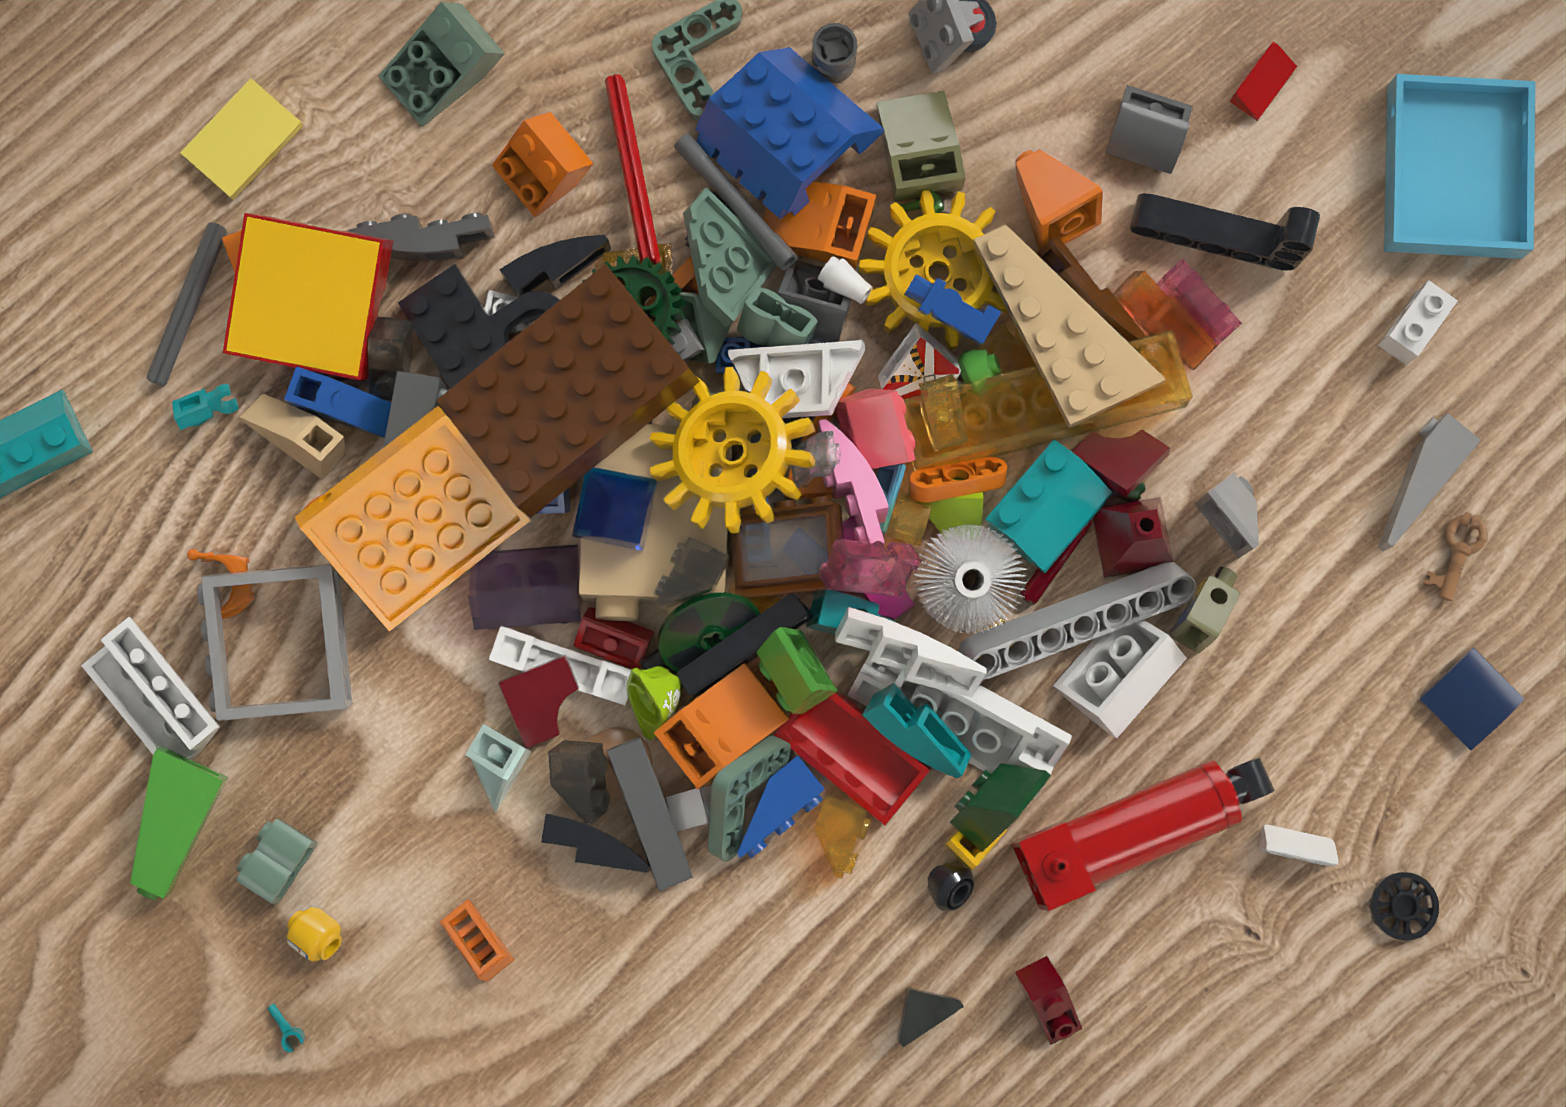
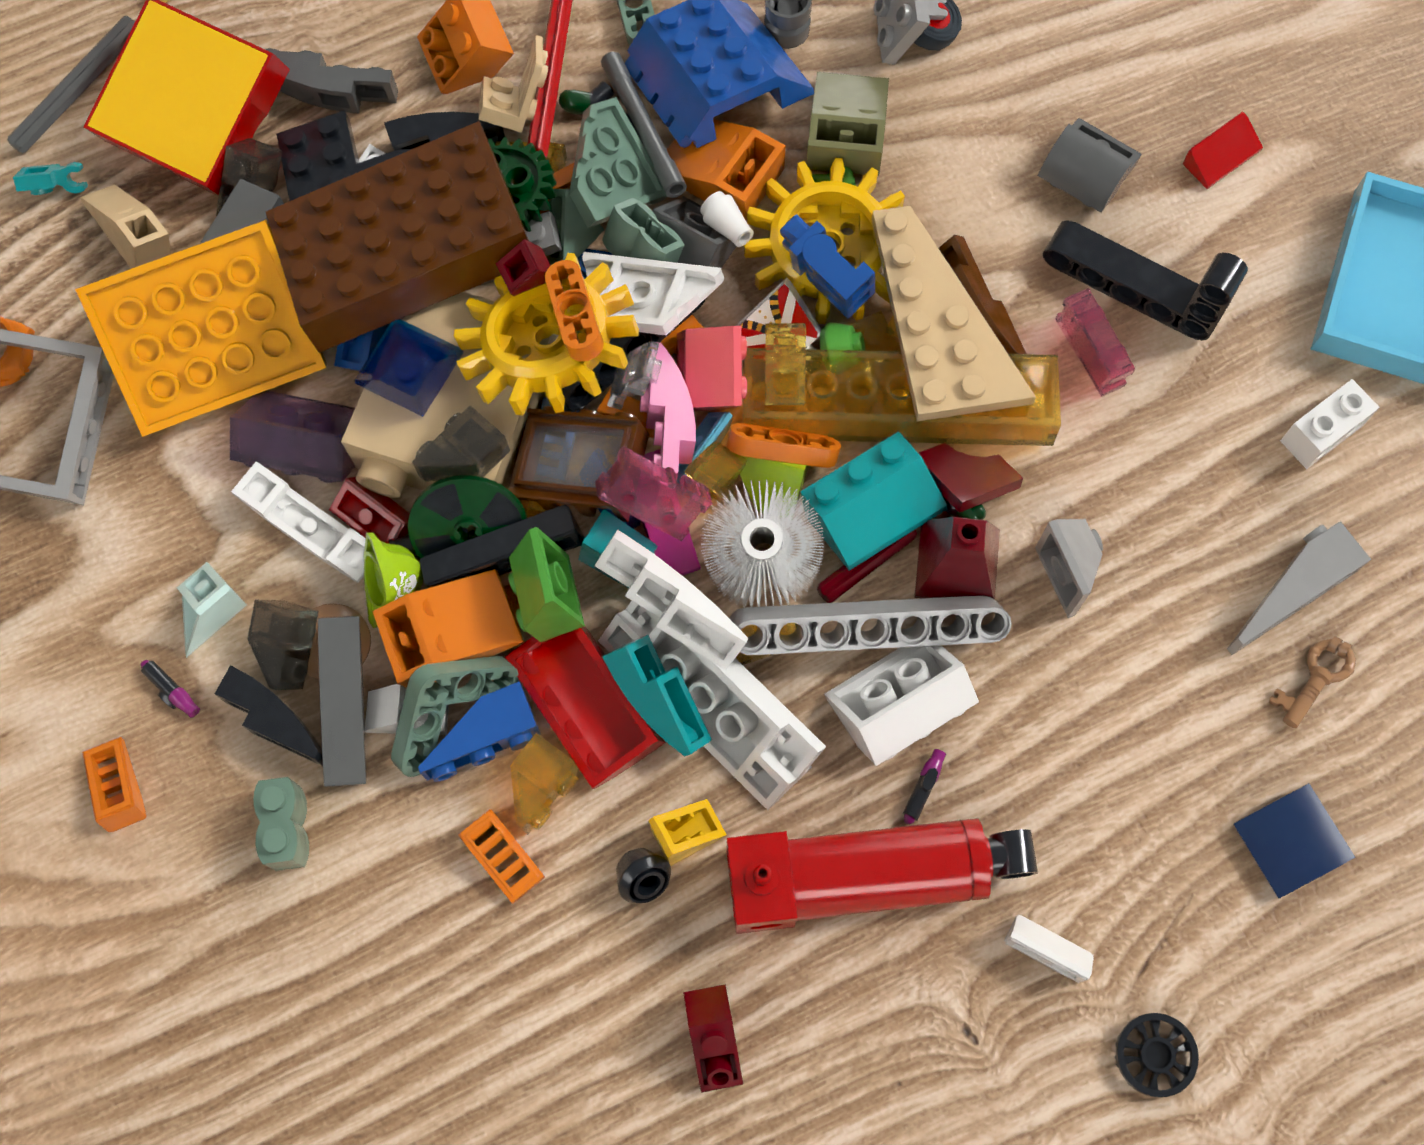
camera: 20 degrees right, 10 degrees down
(338, 402) = (171, 199): blue slope -> none
(494, 847) = (170, 691): none -> piece
(537, 697) = (269, 547): dark red tile -> none
(611, 216) = (512, 105): none -> tan bracket
(640, 943) = (280, 835): none -> sand green brick
(672, 192) = (578, 101): none -> dark green arm
(697, 398) = (523, 267): none -> dark red slope
(742, 423) = (570, 324): none -> orange beam
(802, 888) = (481, 826): none -> orange slope
(924, 1011) = (566, 1008): pearl dark grey slope -> none
(996, 802) = (718, 794): dark green slope -> none
(1057, 198) = (977, 203): orange slope -> none
(1159, 741) = (922, 790): none -> black piece
(1162, 313) = (1044, 334): clear orange slope -> none
(1207, 611) = (1014, 657): olive torso -> none

